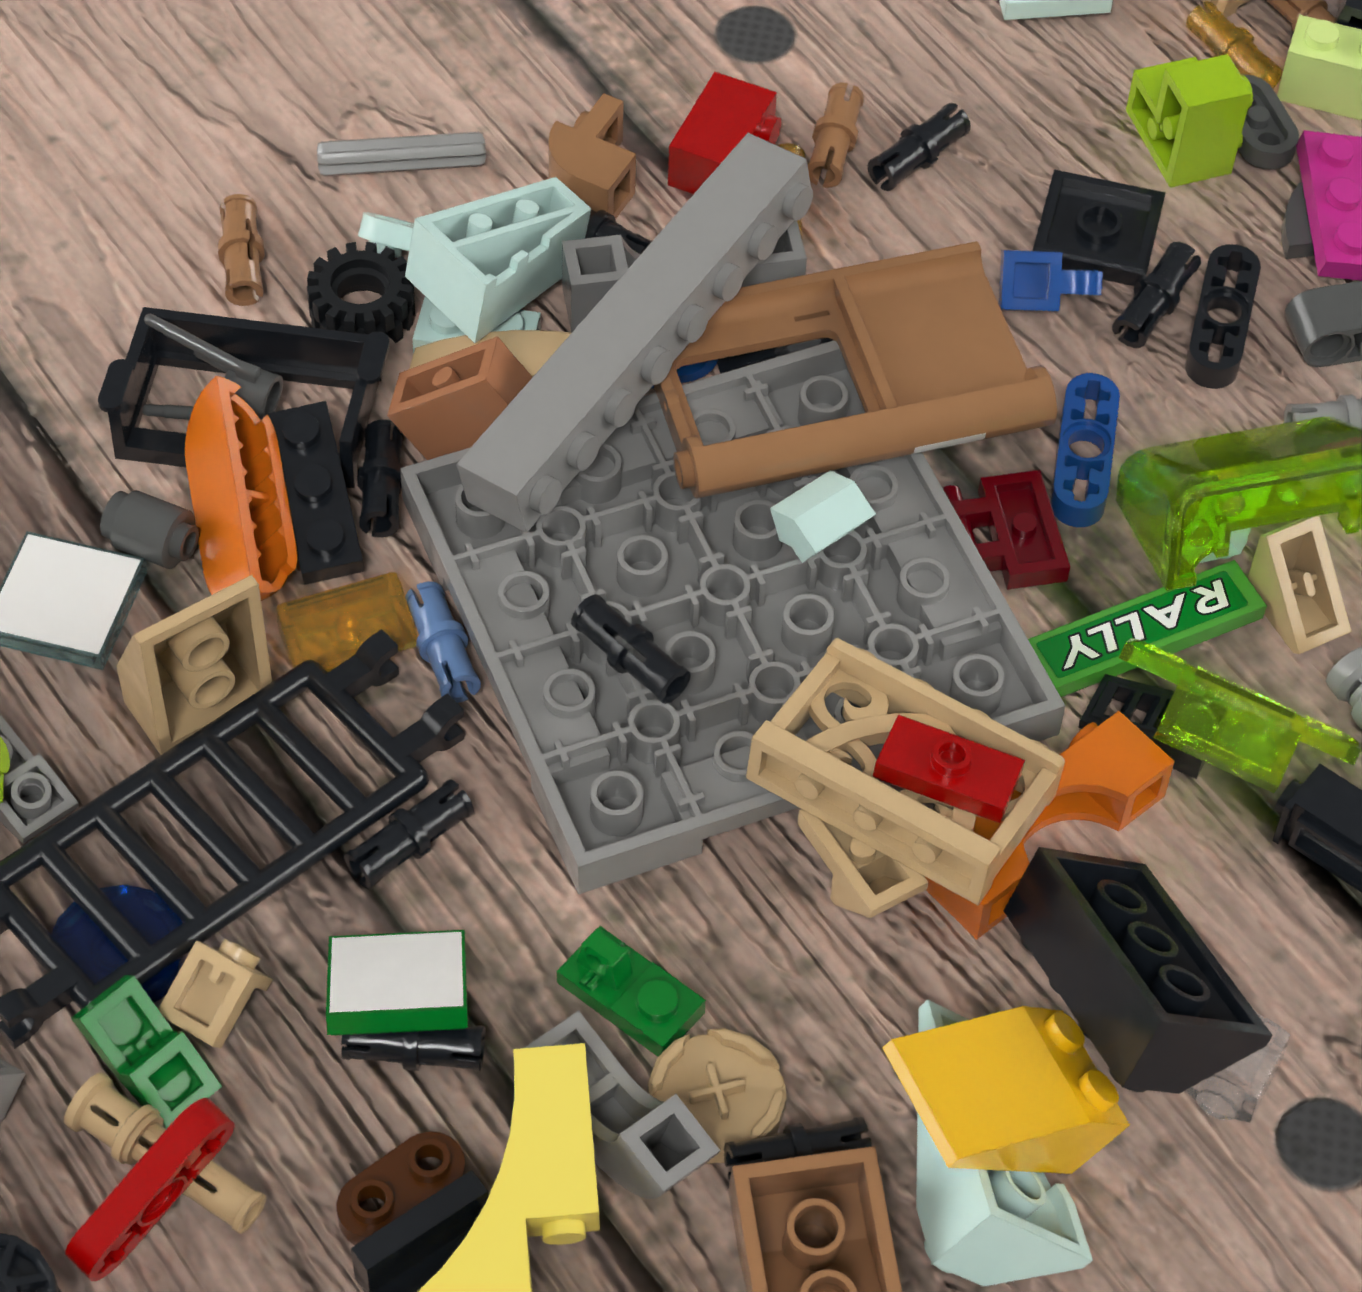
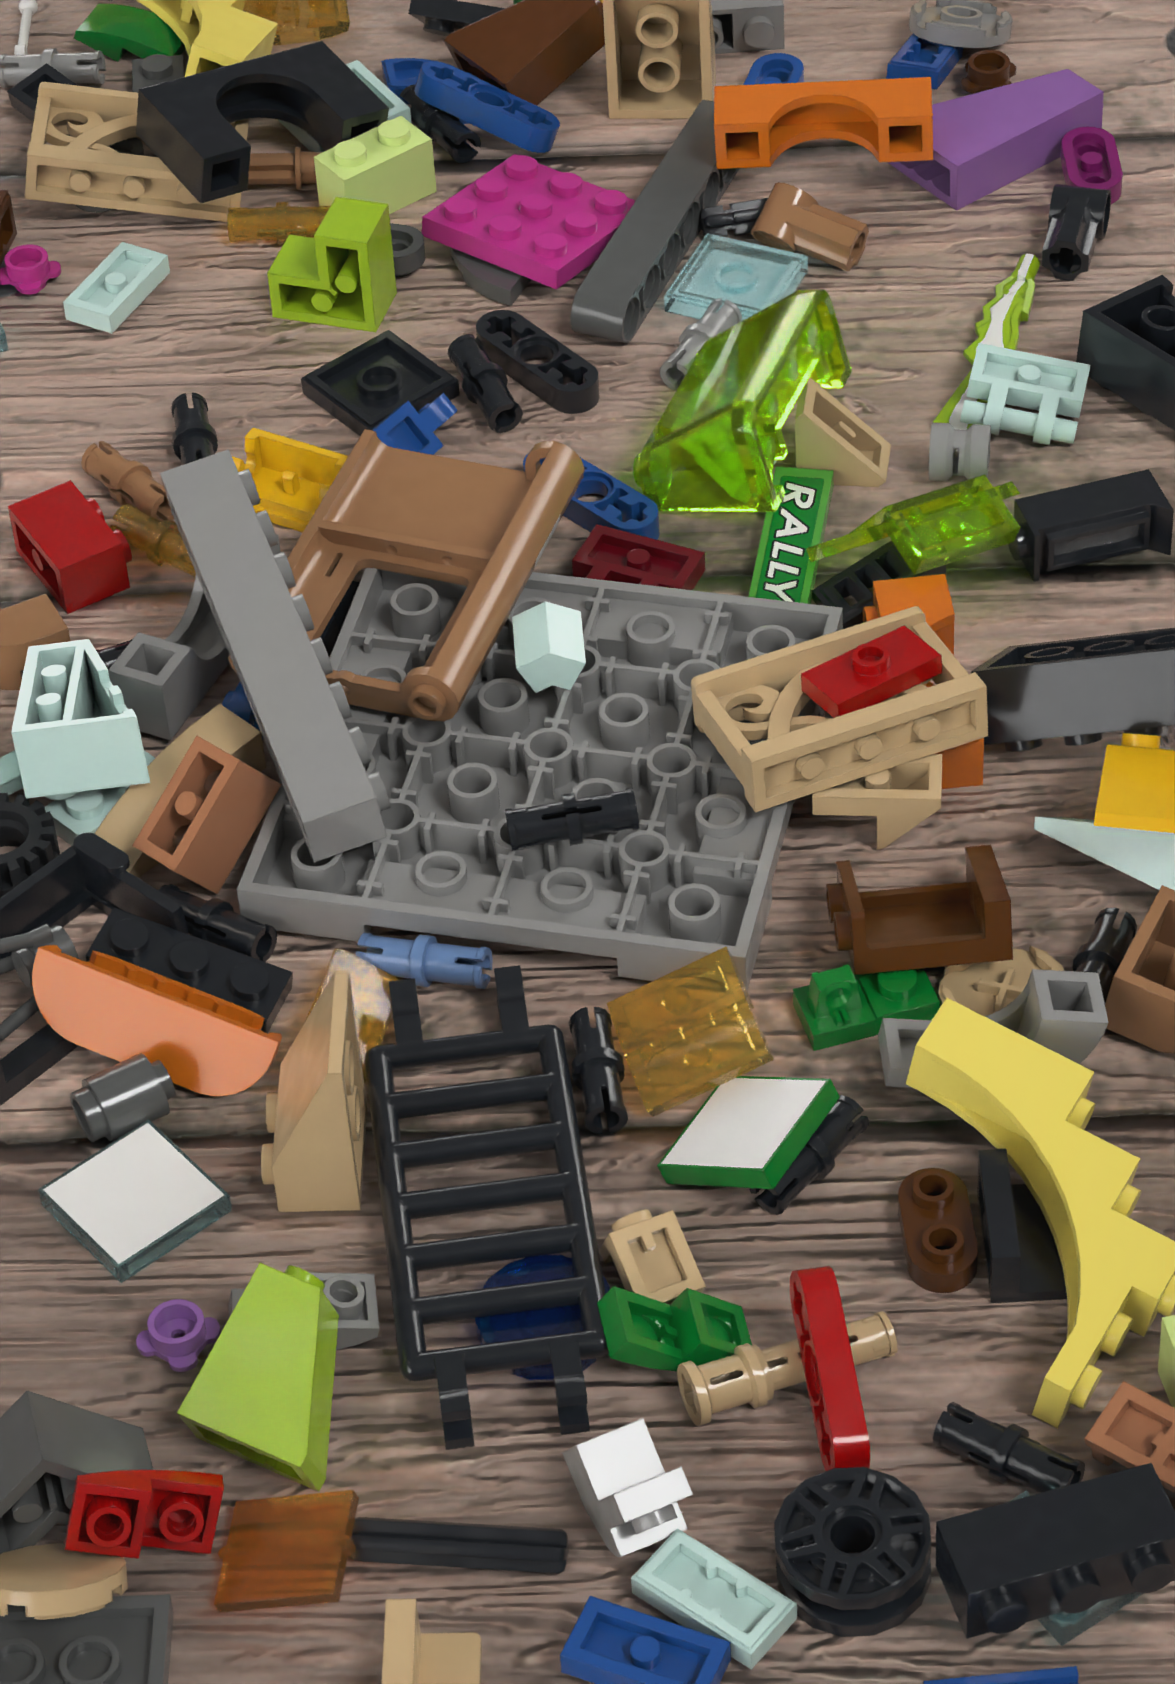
camera: 50 degrees left, 10 degrees down
(480, 872) = (689, 1032): none -> clear yellow slope
(737, 977) = (924, 923): none -> reddish brown panel
(912, 220) = (288, 476): none -> yellow hinge

